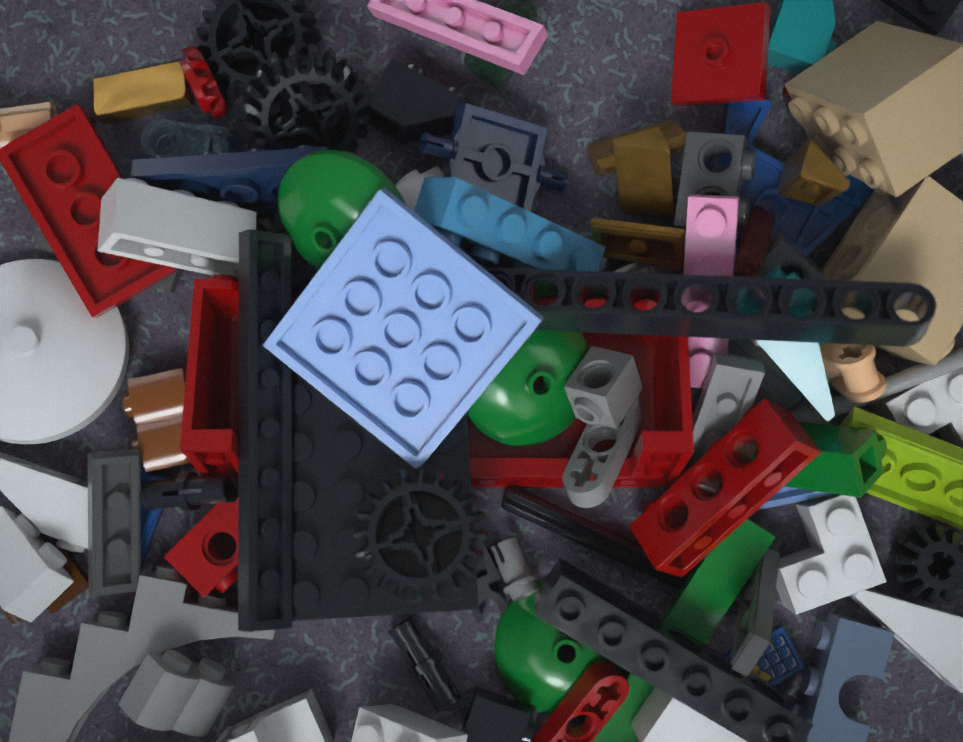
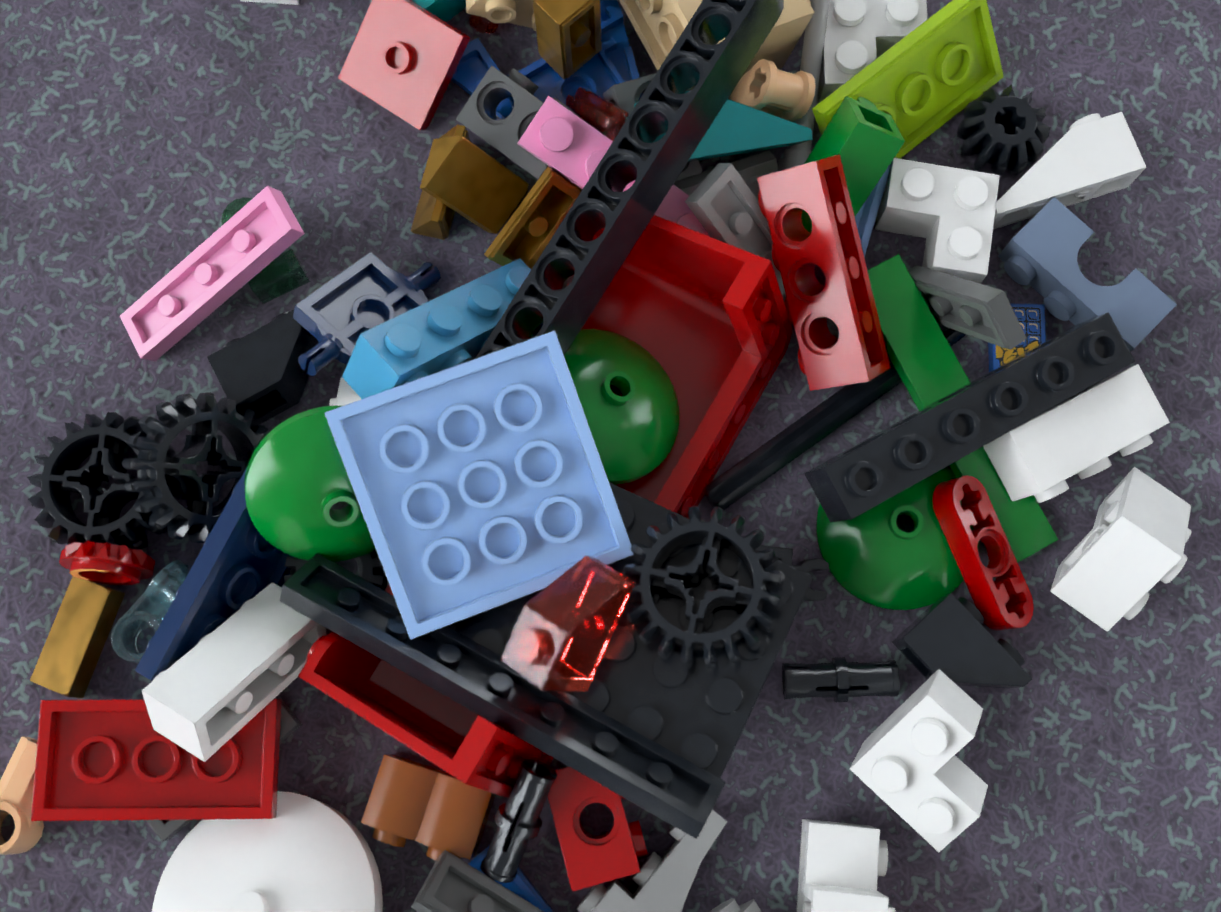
camera: 55 degrees left, 10 degrees down
(333, 455) = (568, 627): none -> clear red slope
(514, 569) = (793, 530): light grey pin -> none
(603, 387) = (657, 333): light grey brick -> none
(604, 464) = (734, 369): light grey beam -> none

